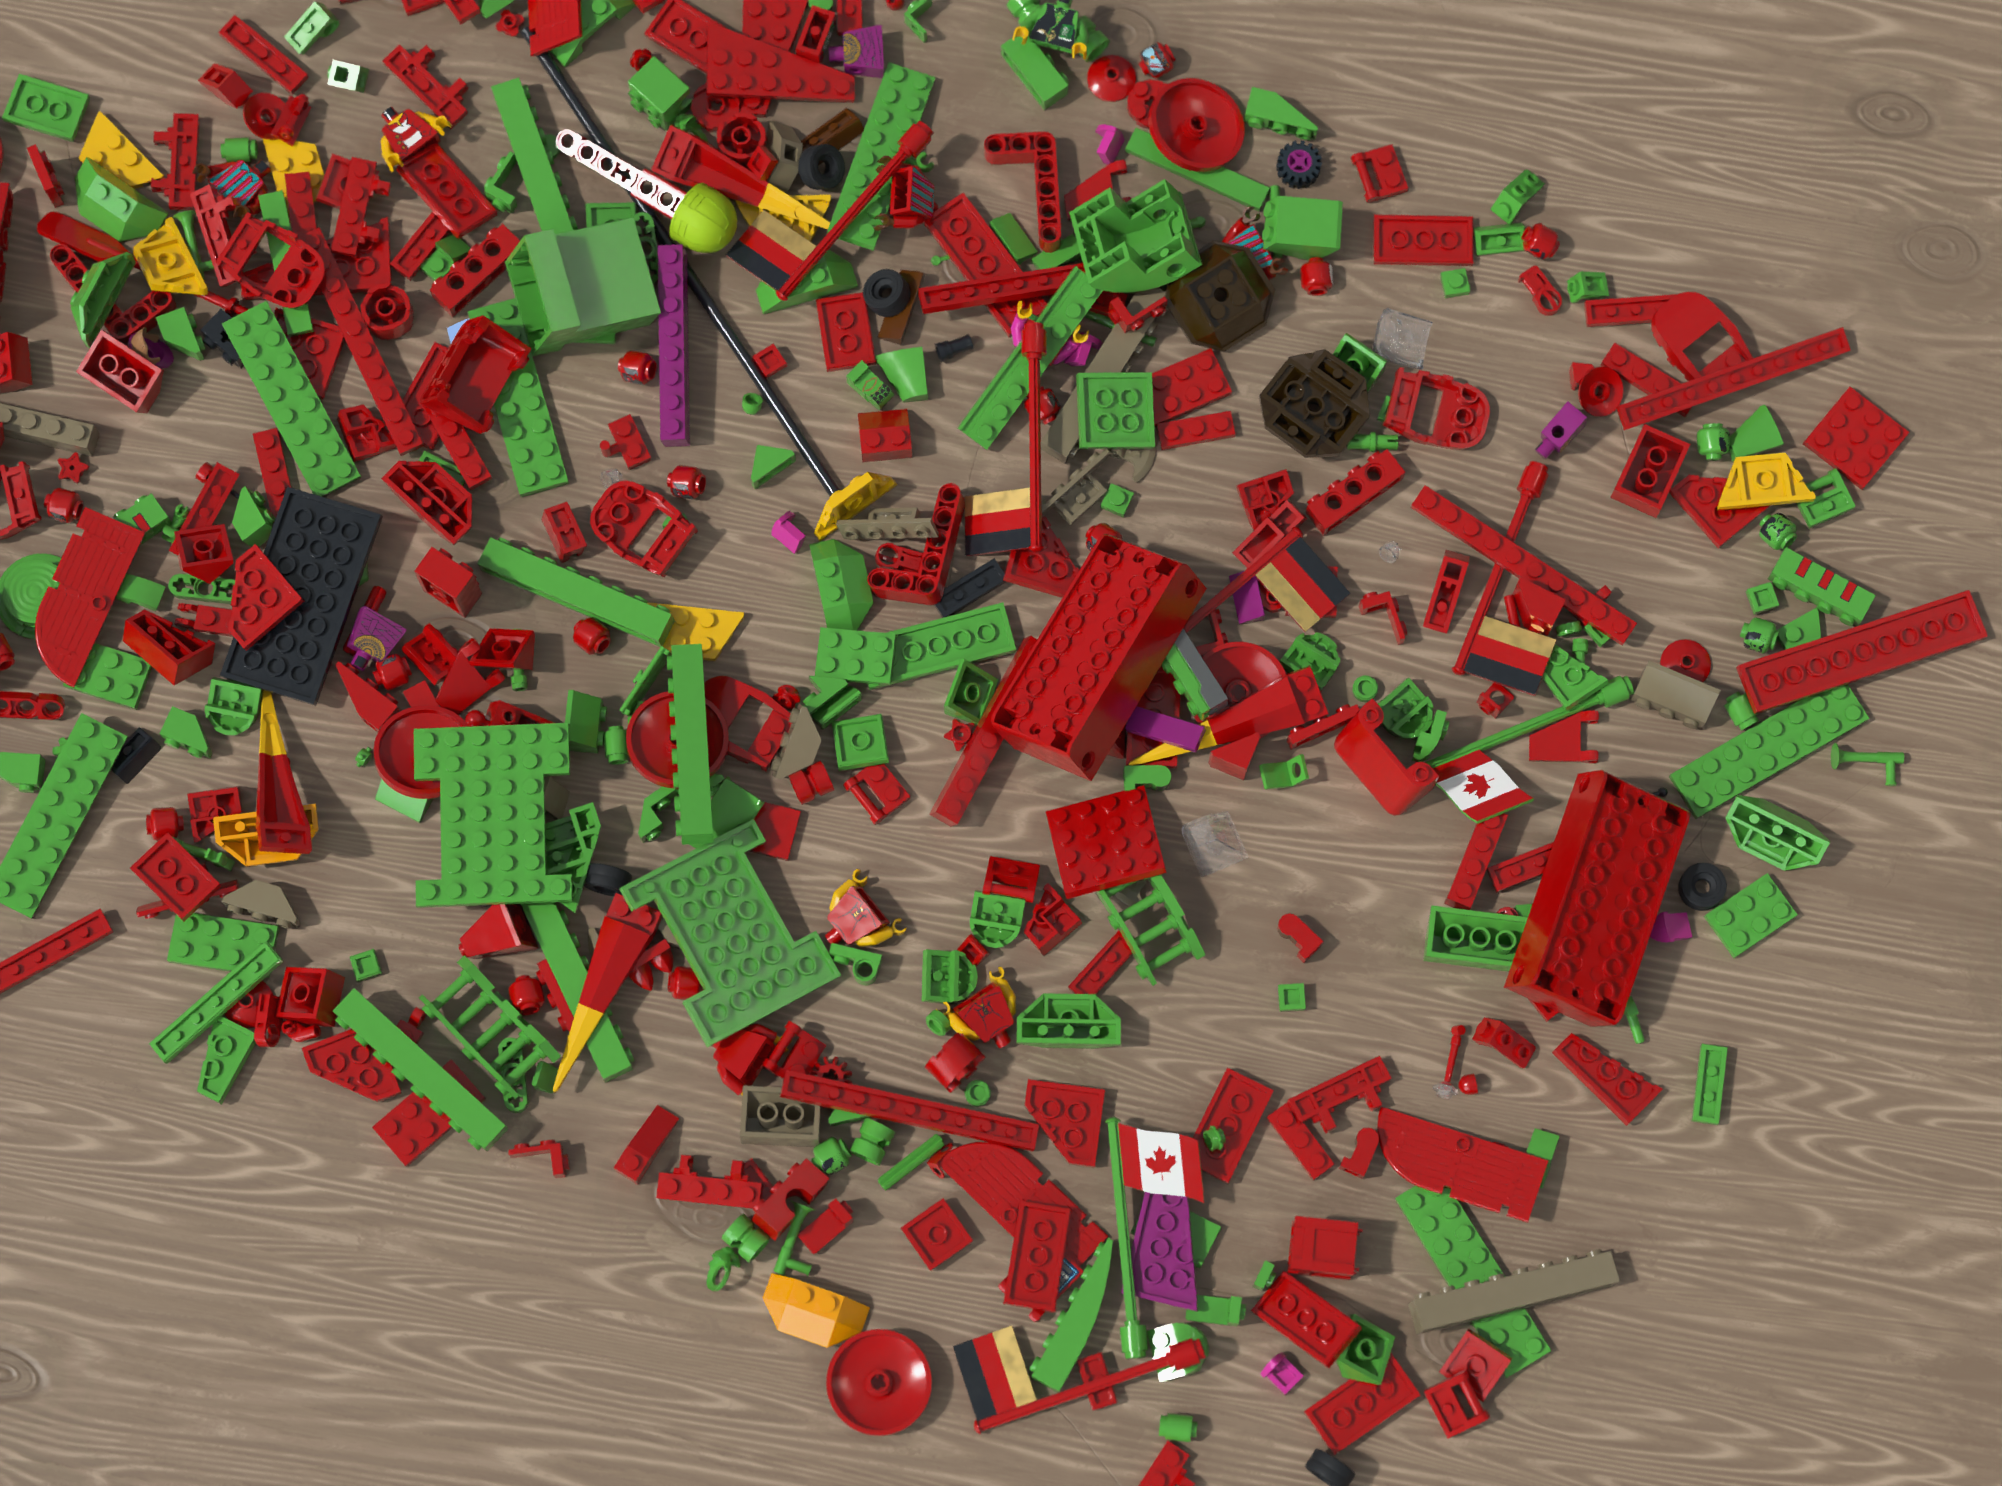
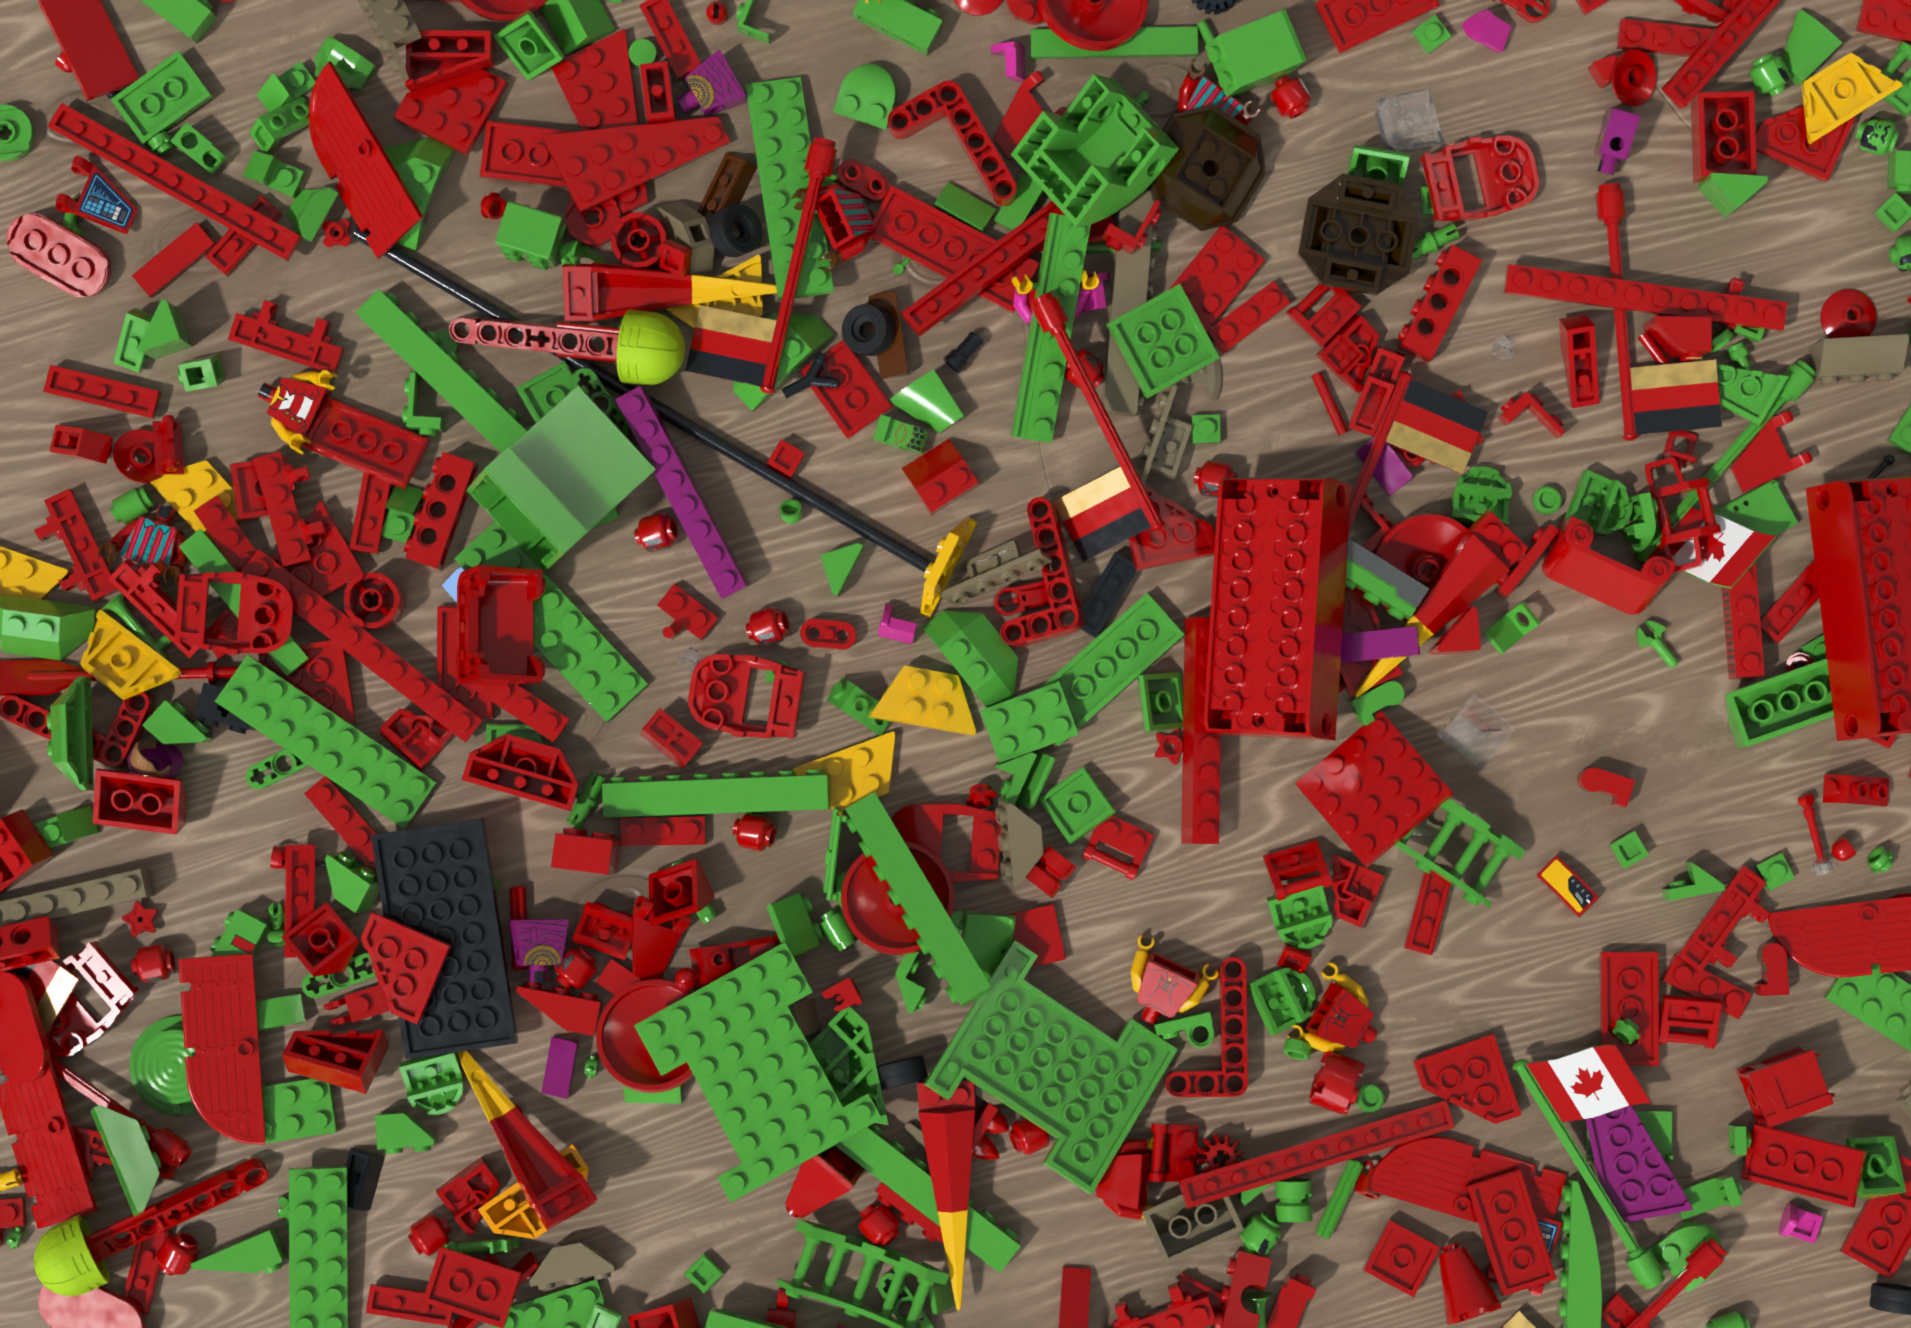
camera: 25 degrees left, 10 degrees up
(54, 370) = (68, 827): none -> bright green slope
(116, 871) = (405, 1304): none -> red plate
(231, 410) = (269, 779): none -> bright green beam
(335, 32) = (165, 332): none -> bright green slope
(339, 745) = (560, 1067): none -> magenta slope
(472, 546) = (586, 800): none -> bright green pin
(519, 601) = (663, 831): none -> red plate
(595, 791) = (847, 991): none -> red hinge
(728, 580) = (856, 704): none -> bright green bracket
(732, 512) = (828, 634): none -> red plate
(781, 600) = (926, 701): none -> yellow wing
(823, 309) = (812, 378): none -> black piece
(884, 987) = (1227, 1041): none -> red beam
(942, 178) = (862, 181): none -> red plate
(976, 1283) = (1464, 1286): none -> red cone
(980, 115) = (867, 95): none -> bright green slope
(1069, 1022) = (1427, 986): bright green wedge -> none
(1226, 1002) = (1567, 886): none -> slope
(1227, 528) = (1329, 403): none -> red piece
(1259, 461) = (1328, 318): none -> red plate
(1275, 1152) = (1689, 1013): none -> red plate
(1336, 1054) = (1699, 884): none -> bright green slope
(1398, 845) = (1656, 642): none -> bright green bar
(1404, 1075) = (1774, 871): none -> bright green plate
(1447, 762) = (1668, 538): none -> red bar
(1496, 1108) = (1880, 859): none -> bright green plate
(1501, 300) = (1487, 30): none -> dark pink tile
(1540, 781) = (1765, 512): none -> bright green door
(1636, 515) = (1730, 190): none -> bright green slope

